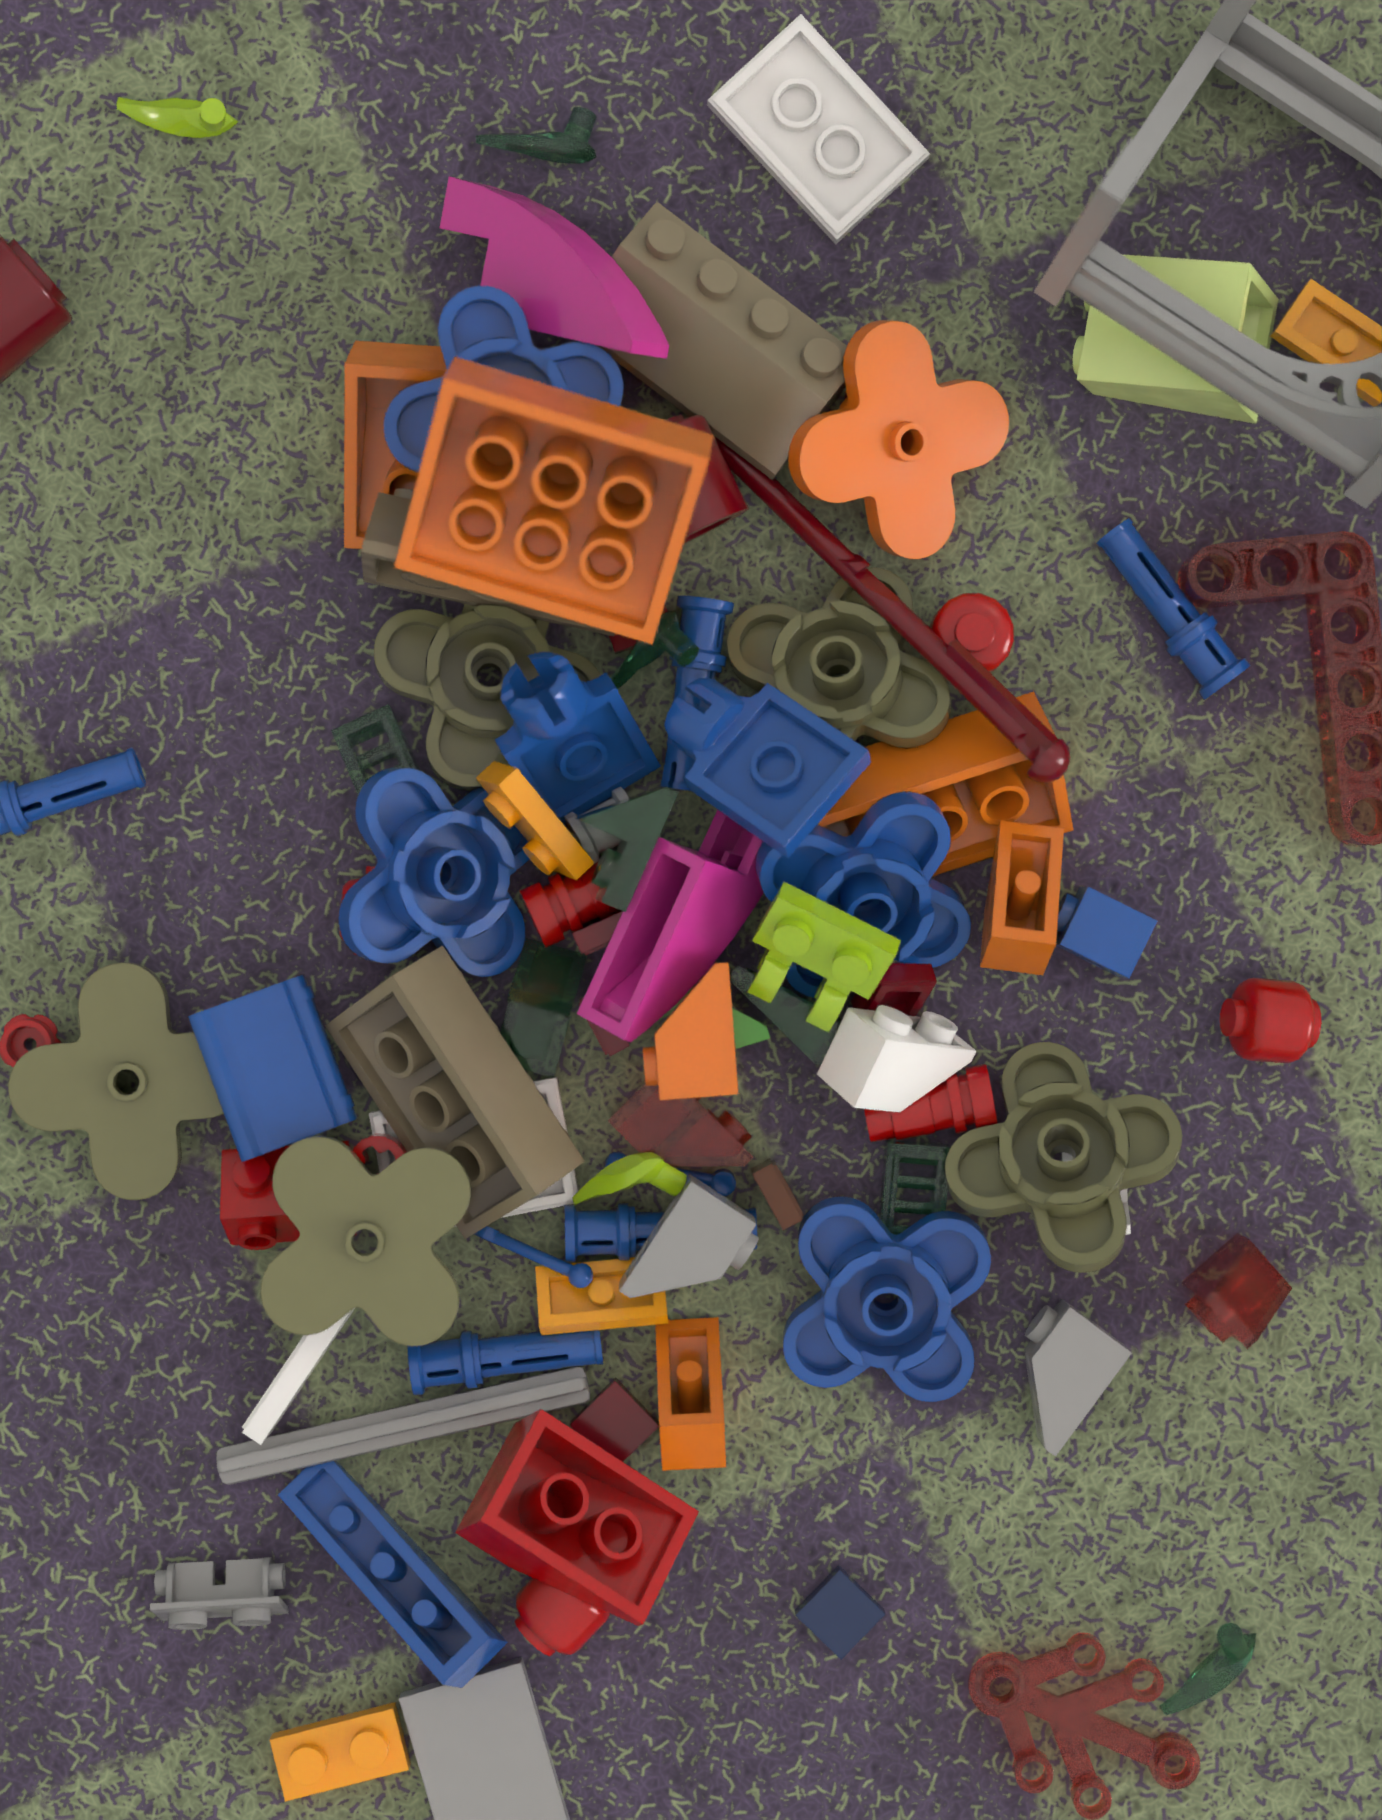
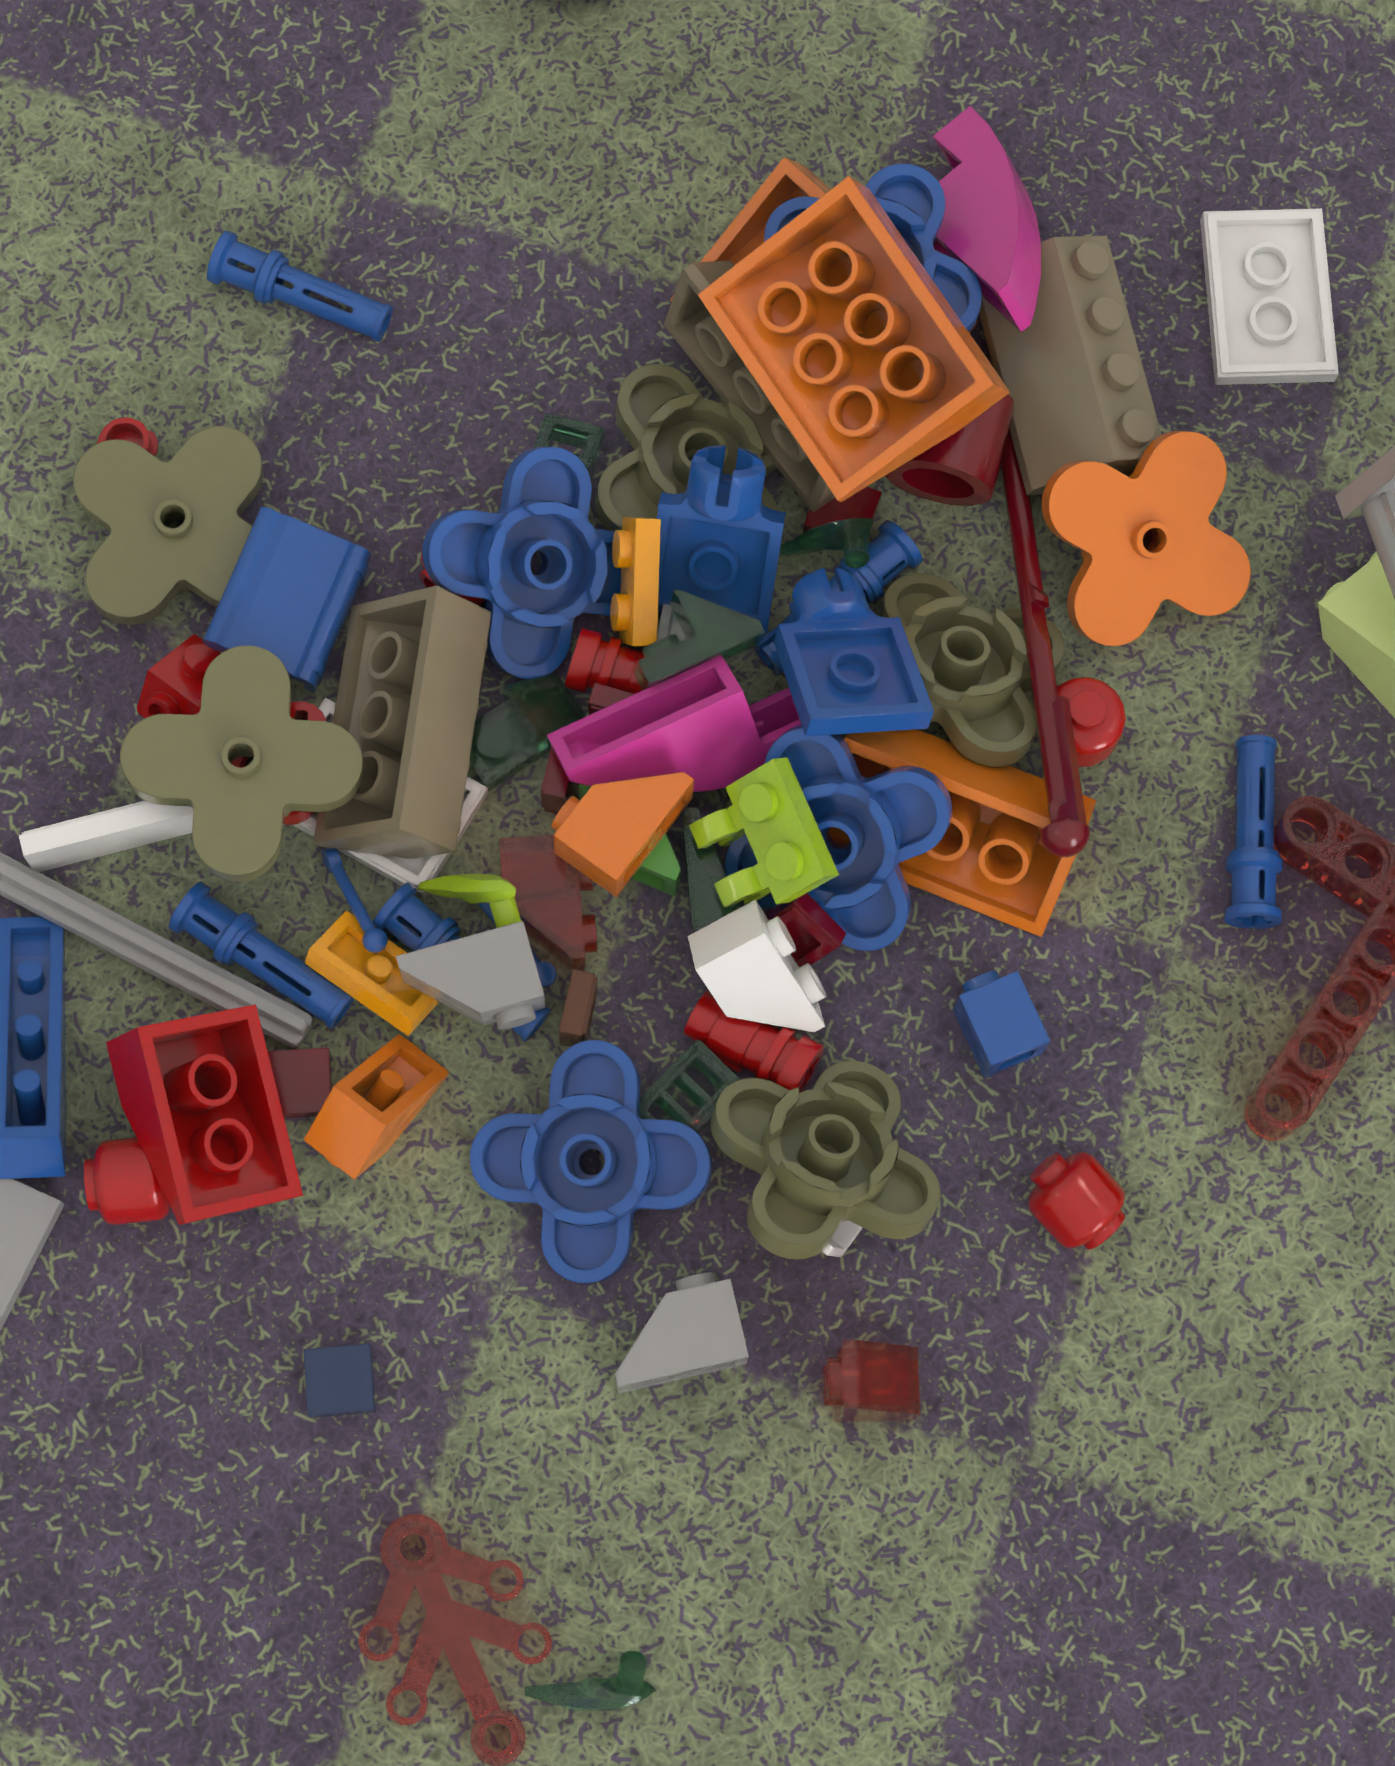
camera: 35 degrees right, 15 degrees down
(551, 146) = (1062, 155): clear green bar -> none
(1022, 898) = (957, 943): orange slope -> none

